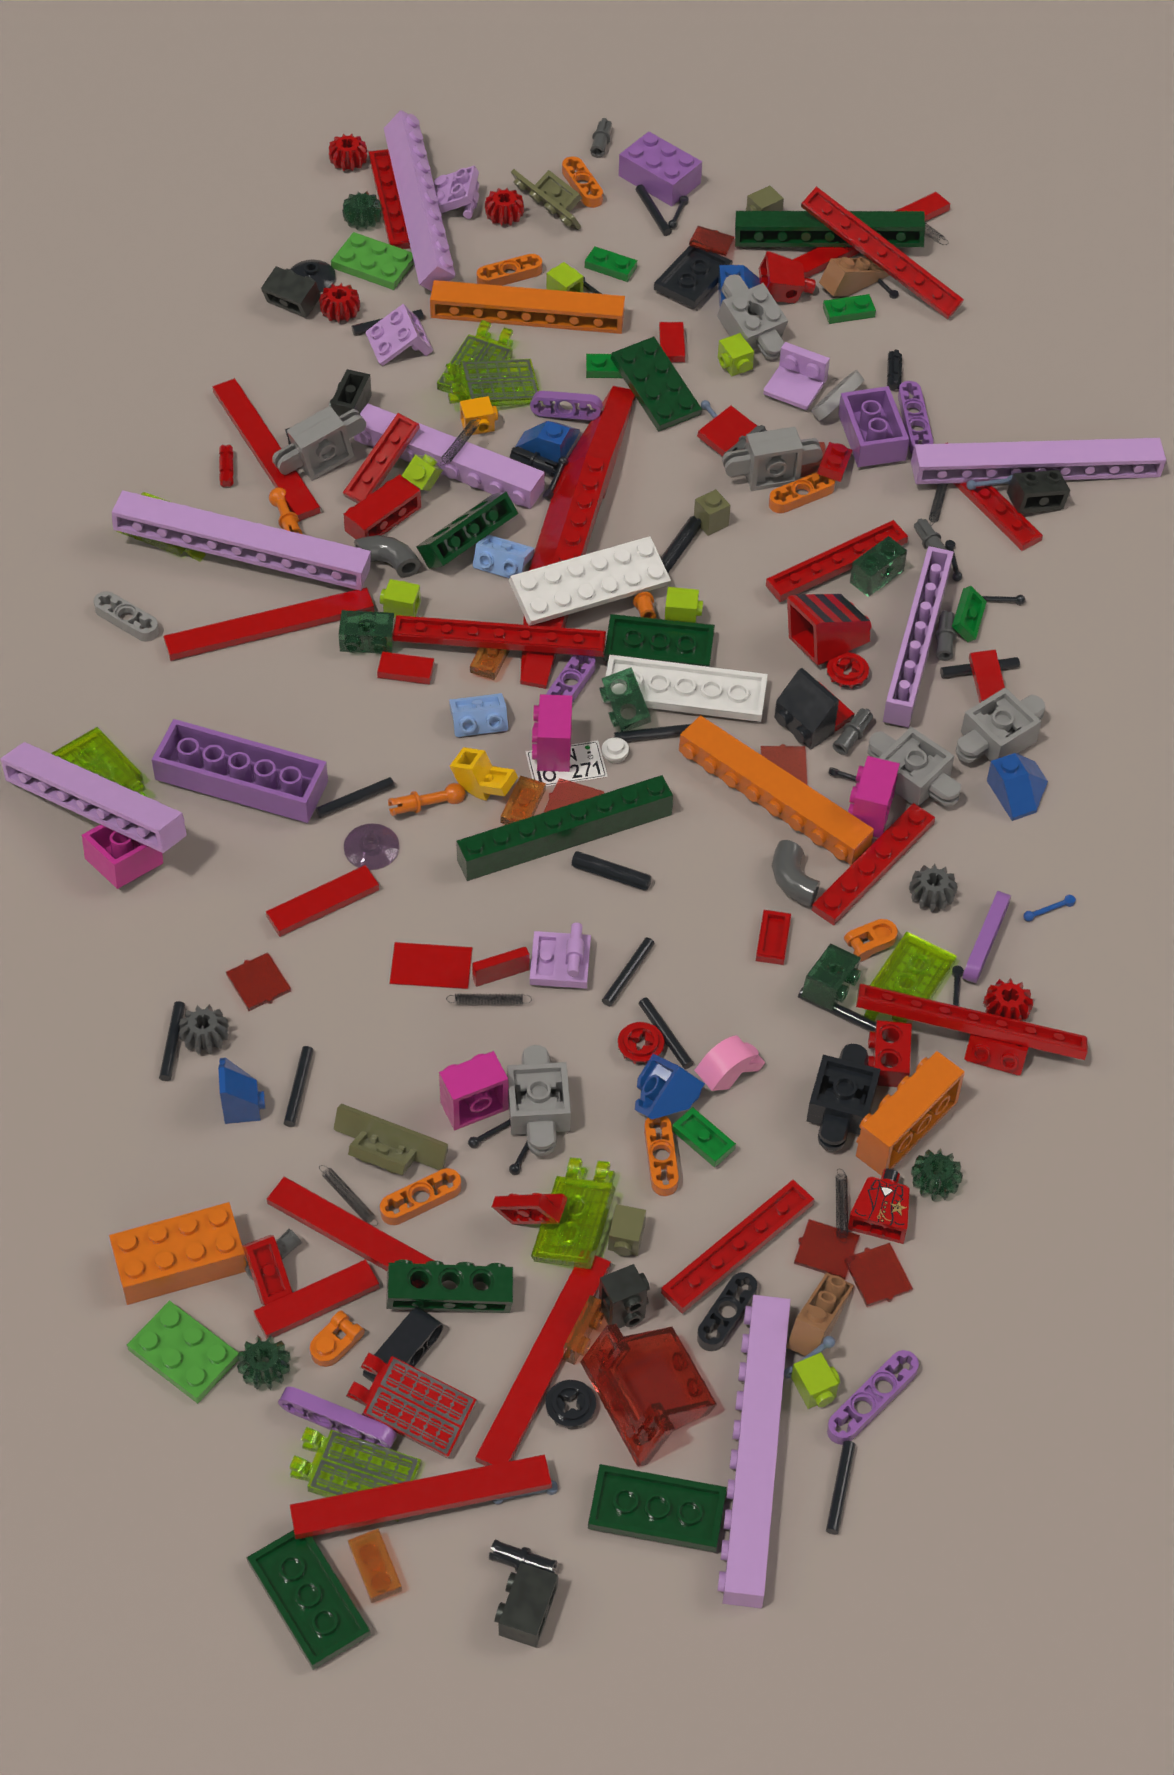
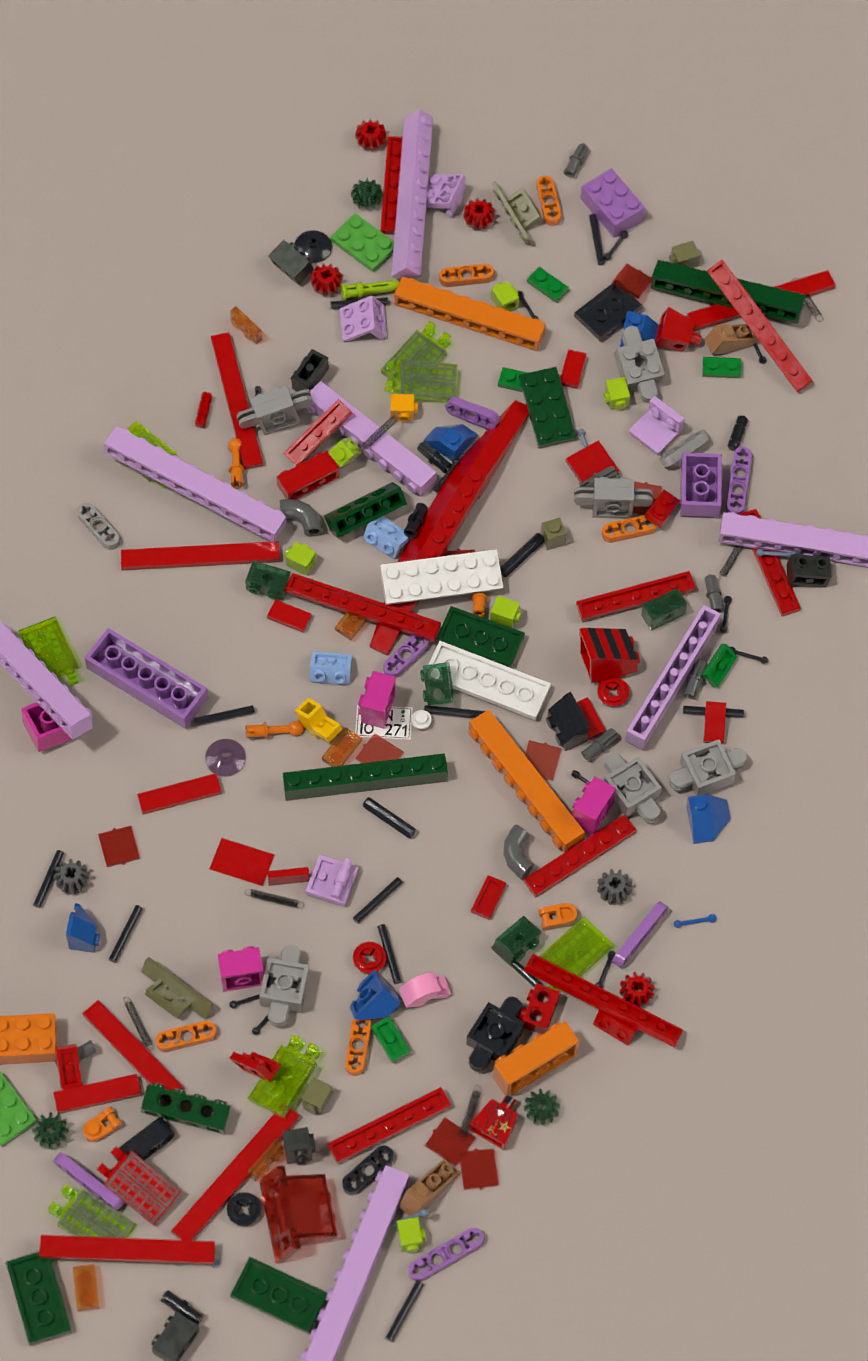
camera: 15 degrees right, 10 degrees up
(254, 366) = (249, 328): none -> clear orange plate
(385, 305) = (359, 289): none -> lime pin
(534, 530) = (415, 520): none -> black pin

